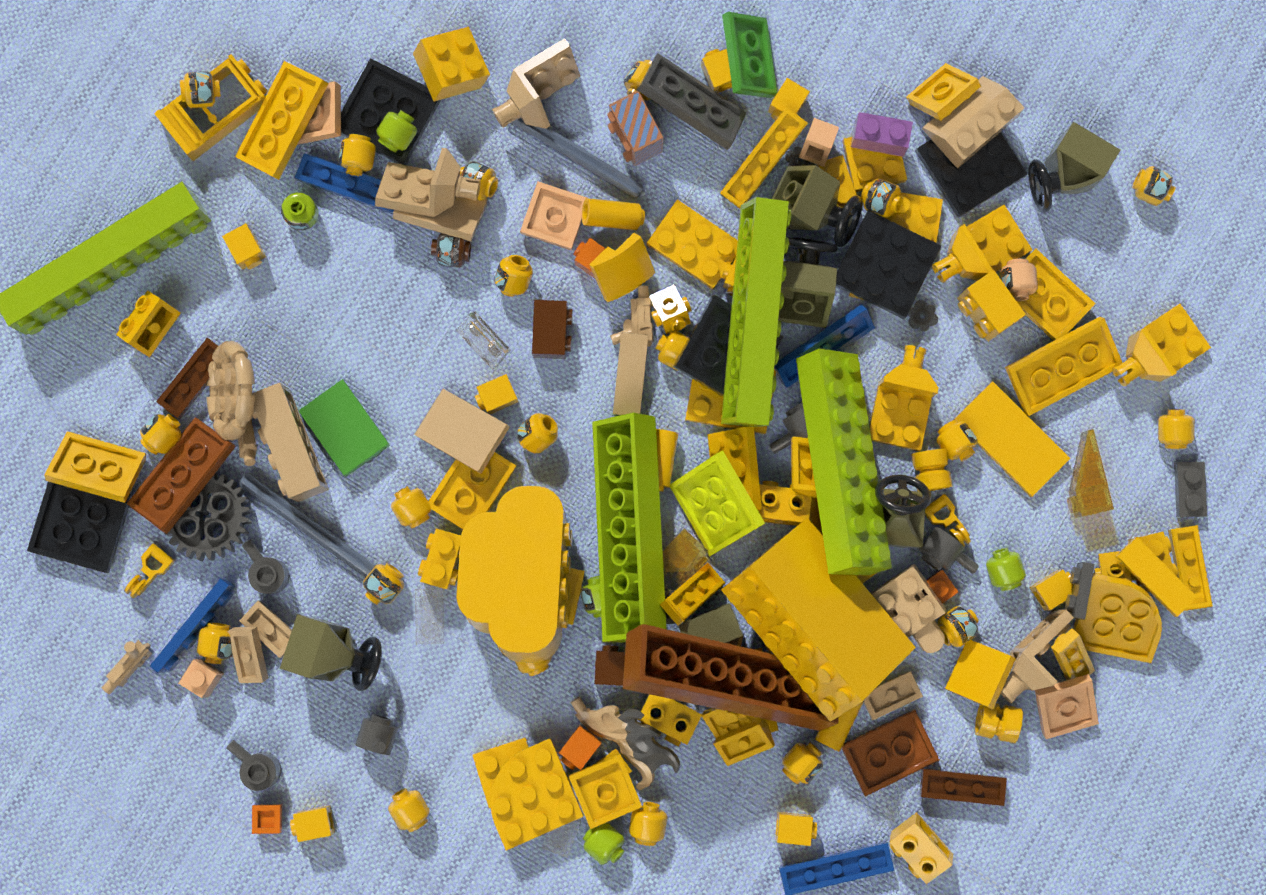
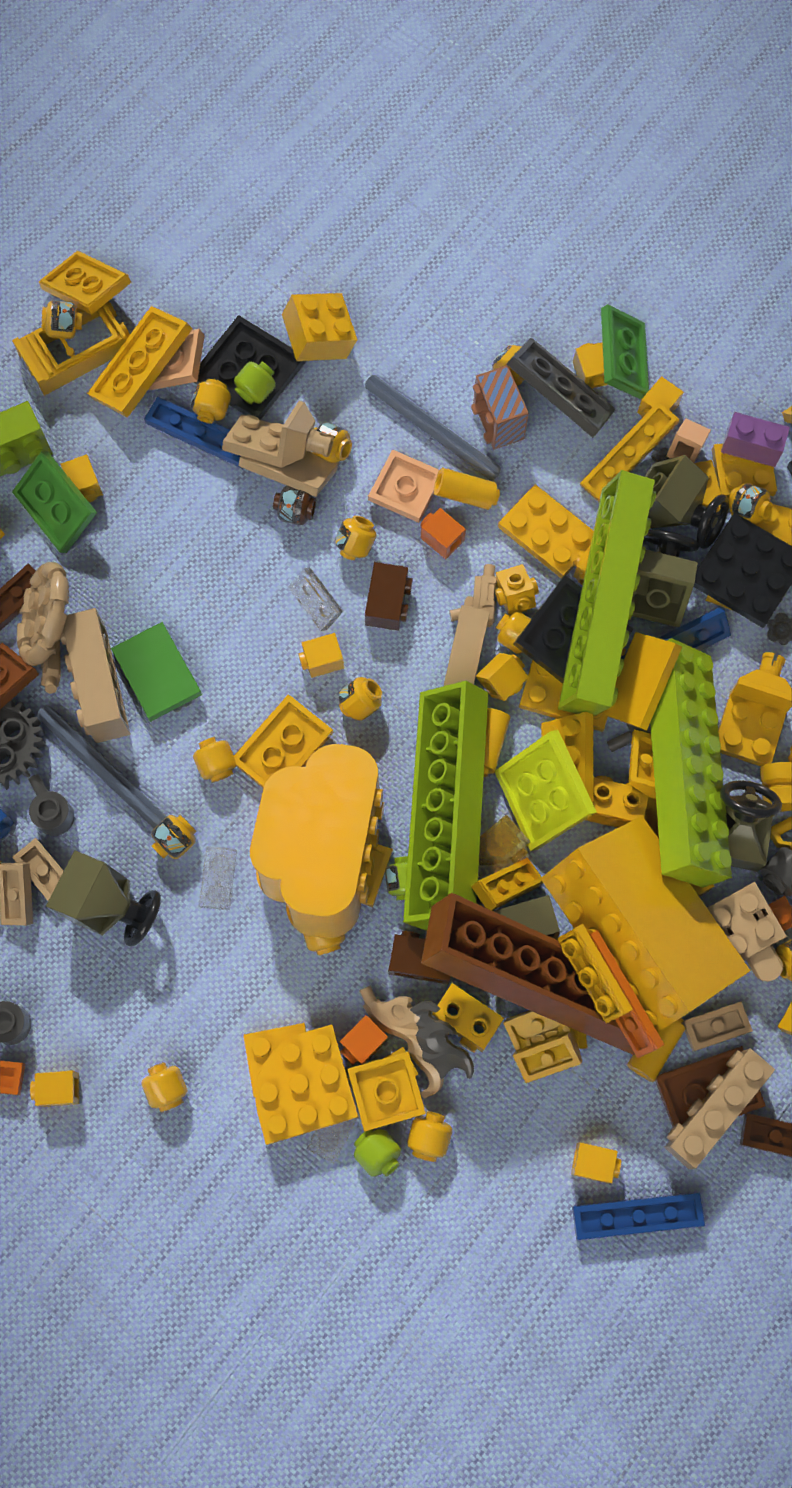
camera: 10 degrees right, 10 degrees down
(214, 42) = (84, 282): none -> yellow tile
(222, 273) = (54, 502): none -> bright green tile
(303, 218) = (144, 450): lime head -> none
(377, 734) = (142, 998): dark grey piece -> none
(441, 560) = (238, 821): yellow brick -> none
(462, 431) = (280, 687): tan tile -> none
(537, 81) = (403, 352): tan plate -> none
(622, 269) = (470, 541): yellow slope -> none
(667, 395) = (503, 676): none -> yellow brick
(776, 674) = (594, 973): none -> yellow tile
(796, 389) = (643, 679): none -> yellow tile
(799, 688) = (636, 1023): none -> orange tile
(802, 763) = (611, 1089): yellow head -> none
(898, 769) = (719, 1108): none -> tan brick
(920, 848) = (737, 1204): yellow brick -> none

